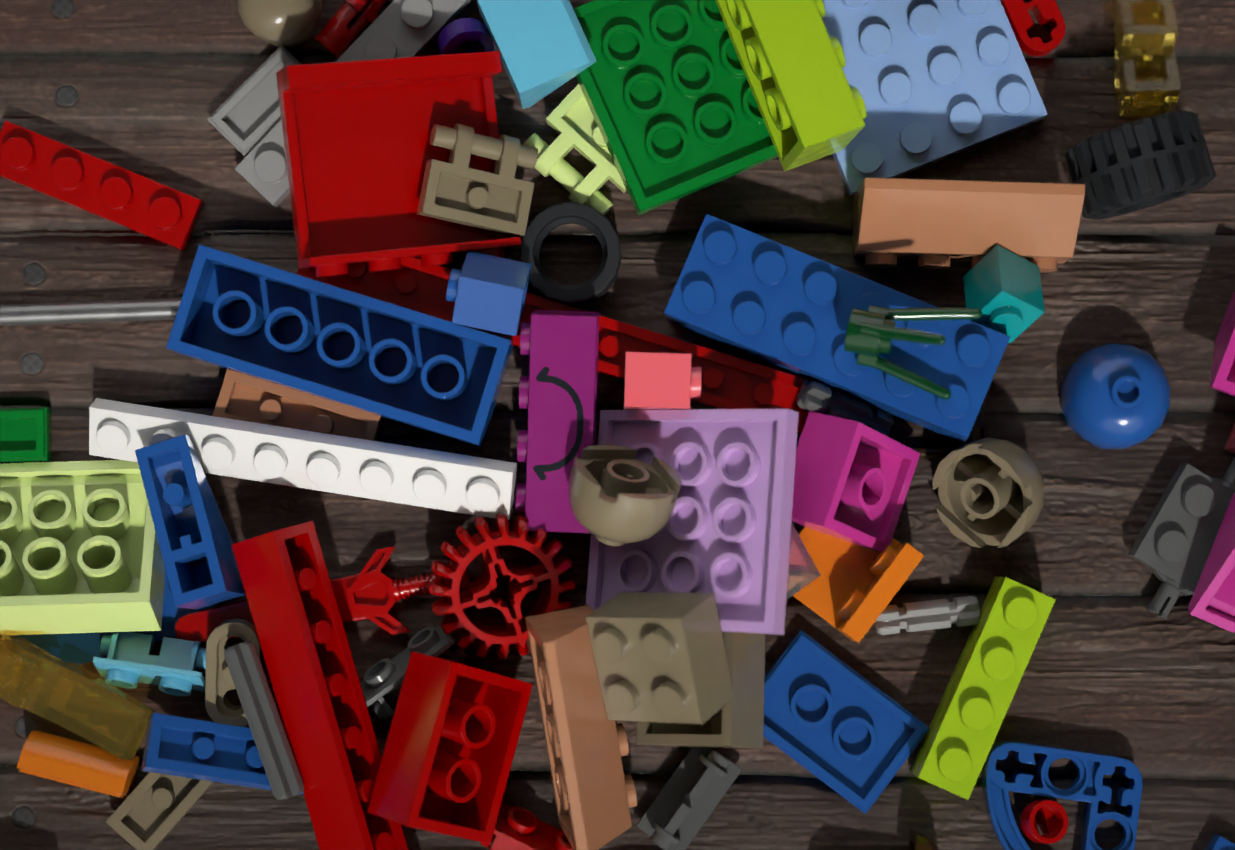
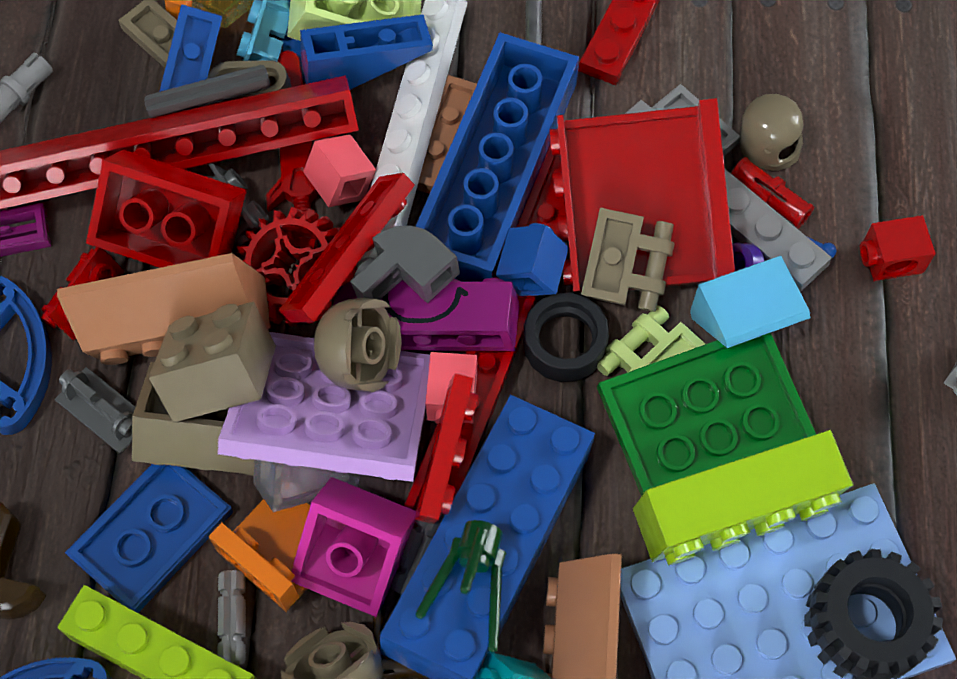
camera: 95 degrees right, 20 degrees down
(363, 543) = (339, 170): none -> coral brick
(499, 513) = (339, 259): none -> red plate
(510, 432) = (409, 256): none -> dark grey brick
(753, 378) = (447, 450): none -> red plate

